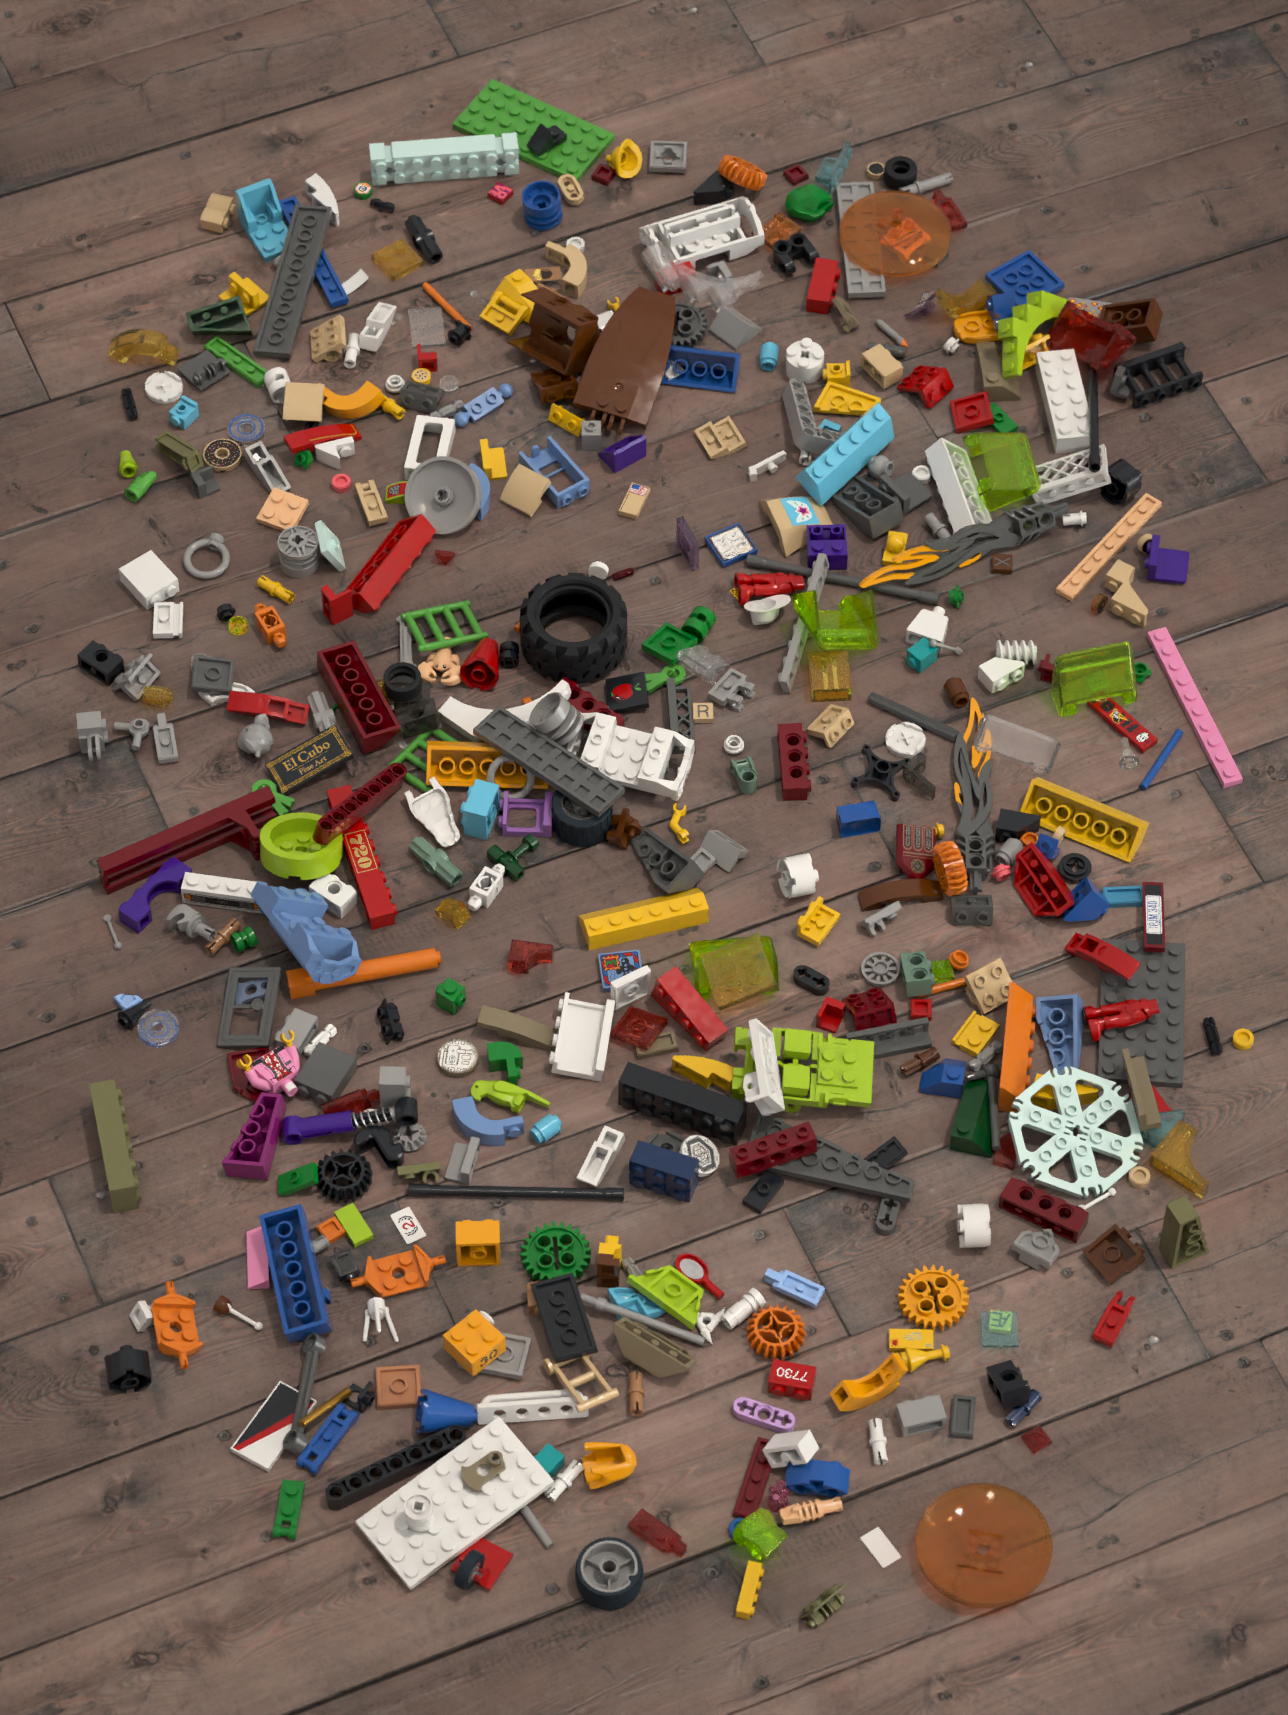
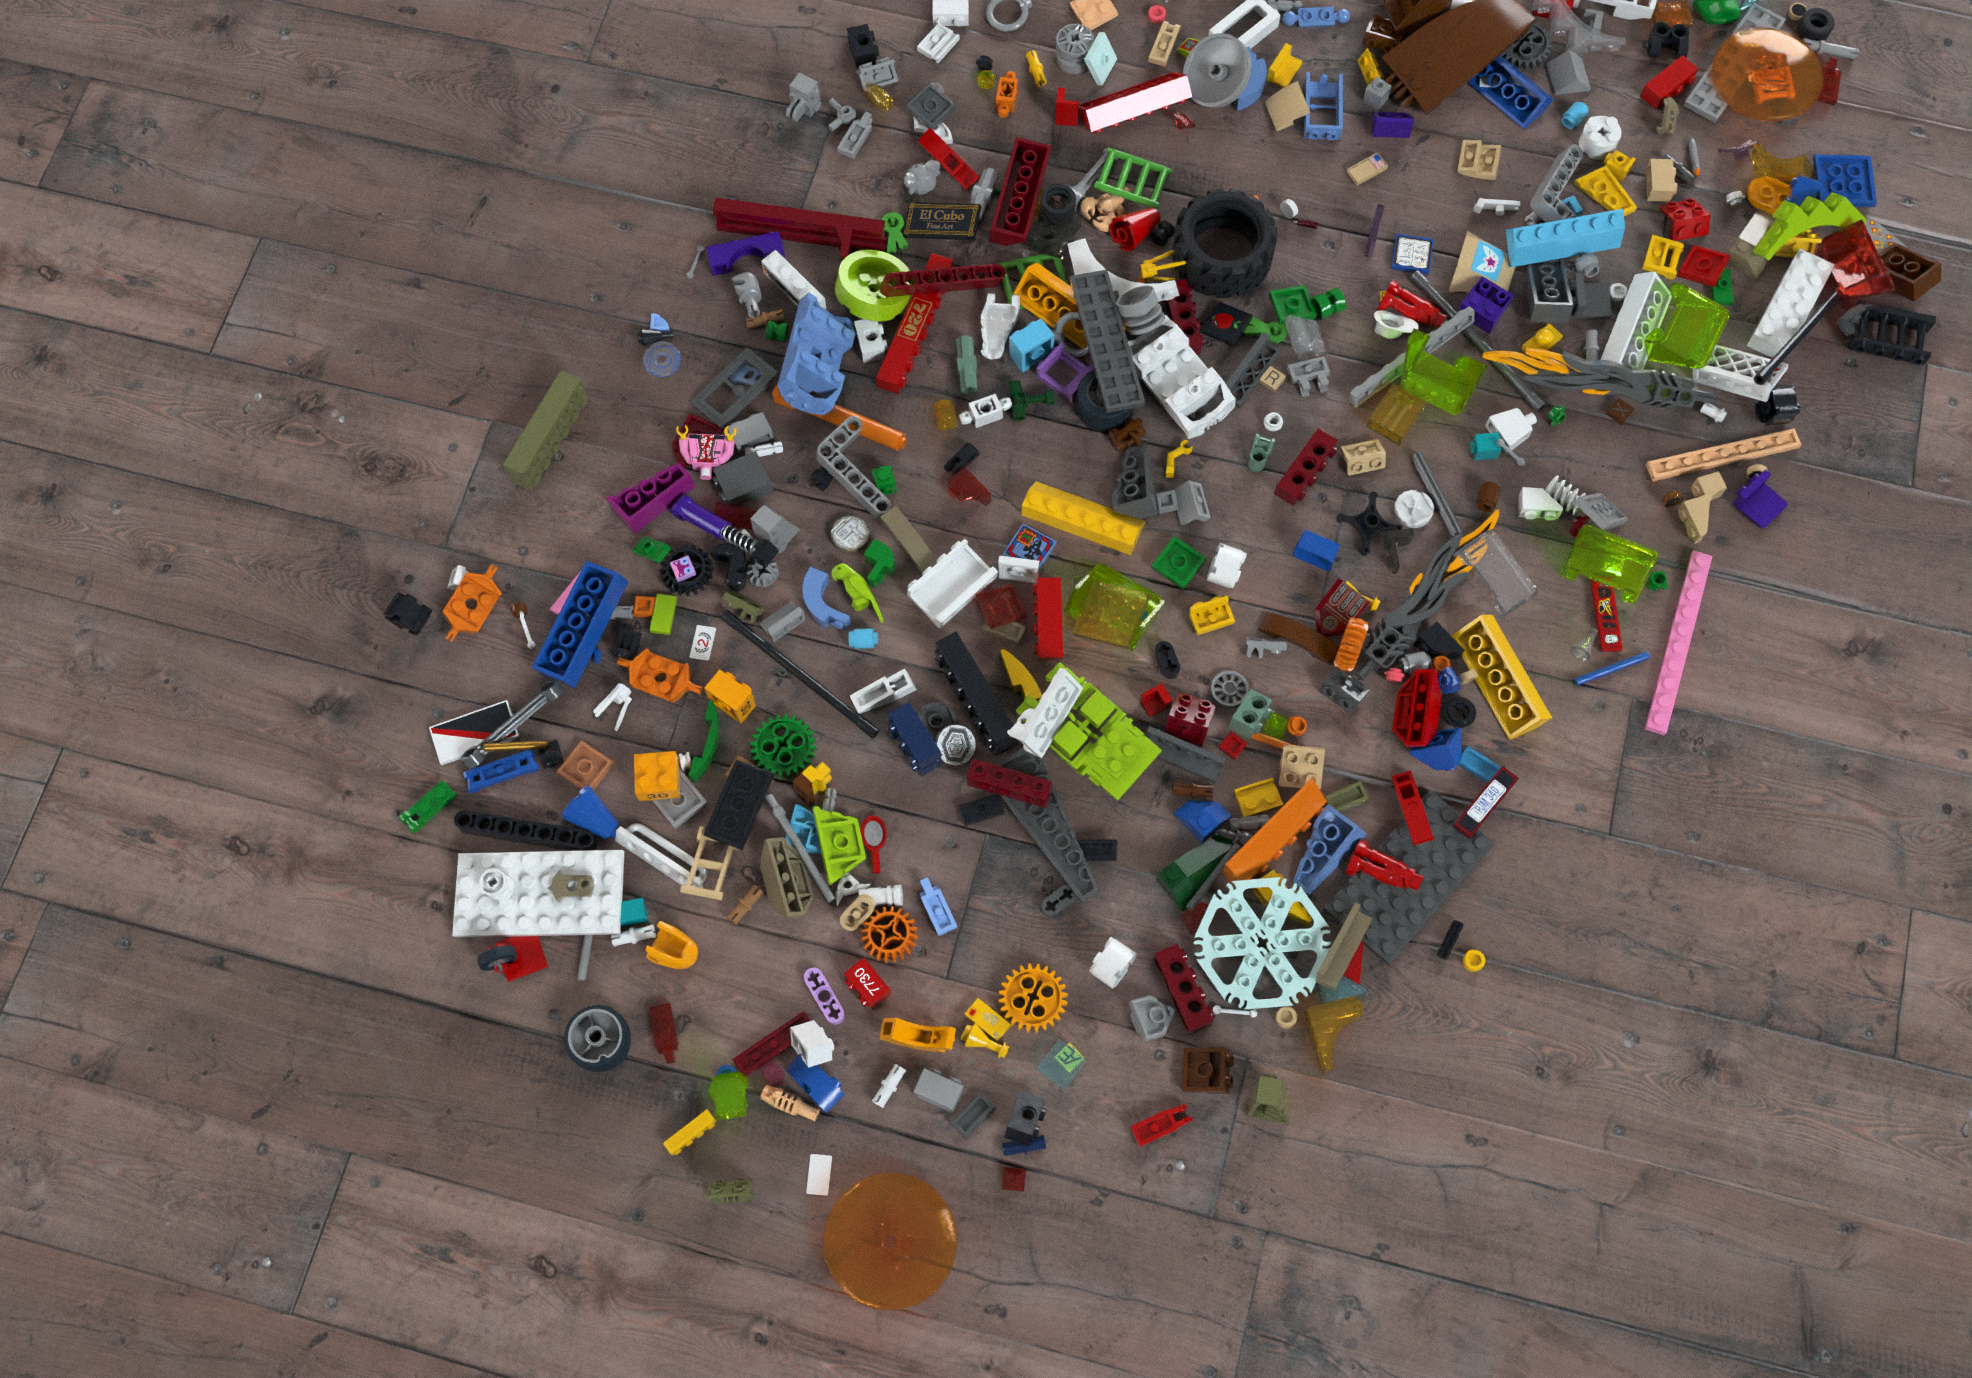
camera: 40 degrees right, 15 degrees up
(344, 1172) = (683, 568): none -> tile
(416, 1003) = (850, 470): none -> light grey beam
(478, 1274) = (700, 765): none -> green slope
(500, 936) = (962, 458): none -> black hinge
(528, 688) = (1148, 269): none -> yellow plant
(738, 1332) = (858, 911): none -> tan plate
(754, 900) = (1178, 562): none -> green plate
(928, 427) = (1657, 254): none -> yellow plate
(1045, 984) = (1347, 797): none -> olive tile
(1056, 642) = (1601, 511): none -> light grey tile

